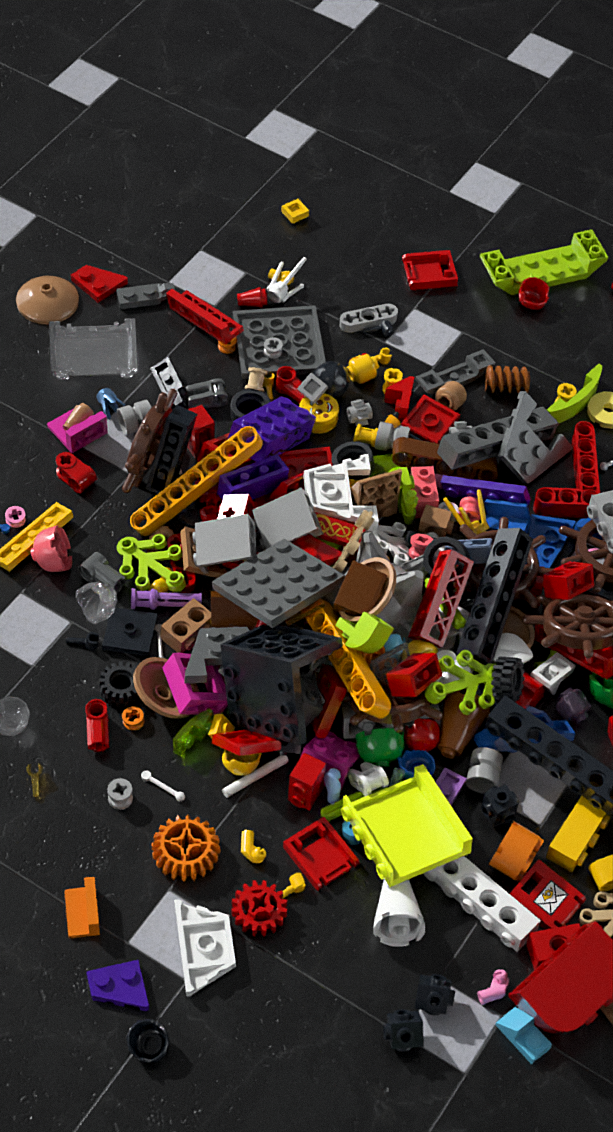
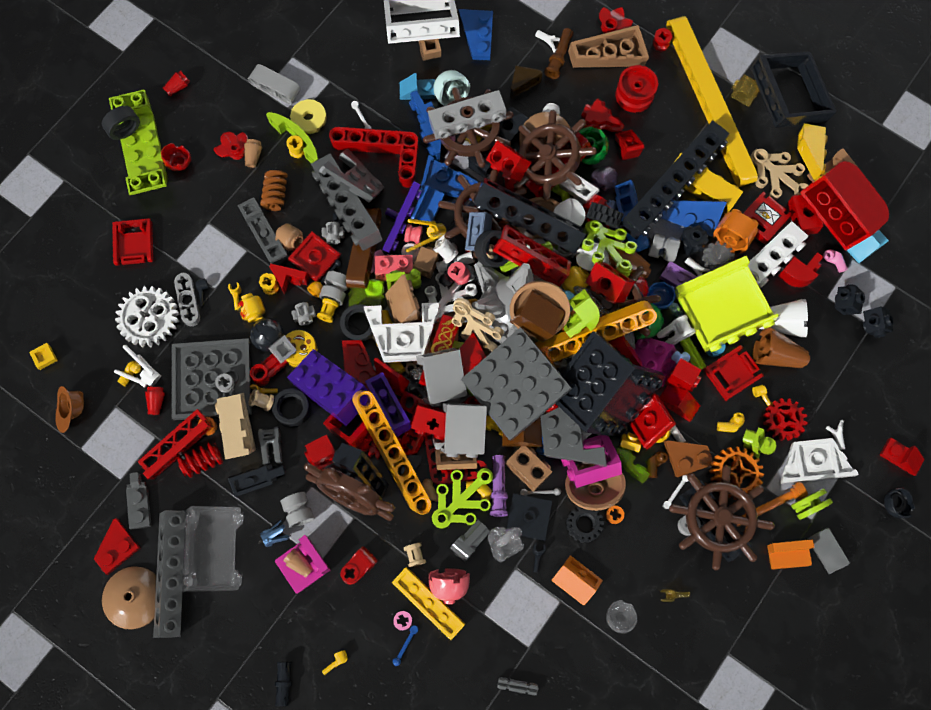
camera: 85 degrees left, 20 degrees up
(36, 318) = (169, 574): none -> dark grey brick
(56, 677) = (577, 580): none -> orange panel
(86, 522) = (414, 555): none -> tan bush
(87, 955) = (829, 551): none -> dark grey slope
(97, 725) = (628, 543): red piece -> none
(119, 985) = (850, 526): dark purple wing -> none
(127, 821) = (718, 518): none -> reddish brown brick
(145, 927) = (811, 504): none -> lime head
(163, 921) = (797, 491): none -> orange piece
(189, 336) = (200, 460): none -> red piece
(196, 759) = (654, 462): none -> reddish brown arm
(206, 794) = (687, 457): none -> dark orange wing
(213, 1059) = (902, 456): none -> red slope
(223, 355) = (235, 426): none -> tan wedge
(225, 865) = (758, 442): none -> lime hips
(241, 977) = (838, 435): none -> white bar
(244, 235) = (69, 406): none -> dark orange piece
(273, 791) = (680, 402): none -> red slope
(344, 285) = (131, 310): none -> white gear
(351, 901) = (779, 350): none -> dark orange cone
(448, 528) = (447, 250): none -> white piece
(466, 811) = (696, 267): none -> white bar
(466, 939) = (799, 274): none -> red brick
(489, 835) = (717, 255): none -> clear gear
(537, 805) = (693, 213): none -> blue wing
(551, 360) = (252, 152): none -> medium nougat cone
(558, 344) = (232, 145): none -> red plate
(568, 234) = (115, 117): none -> black tyre

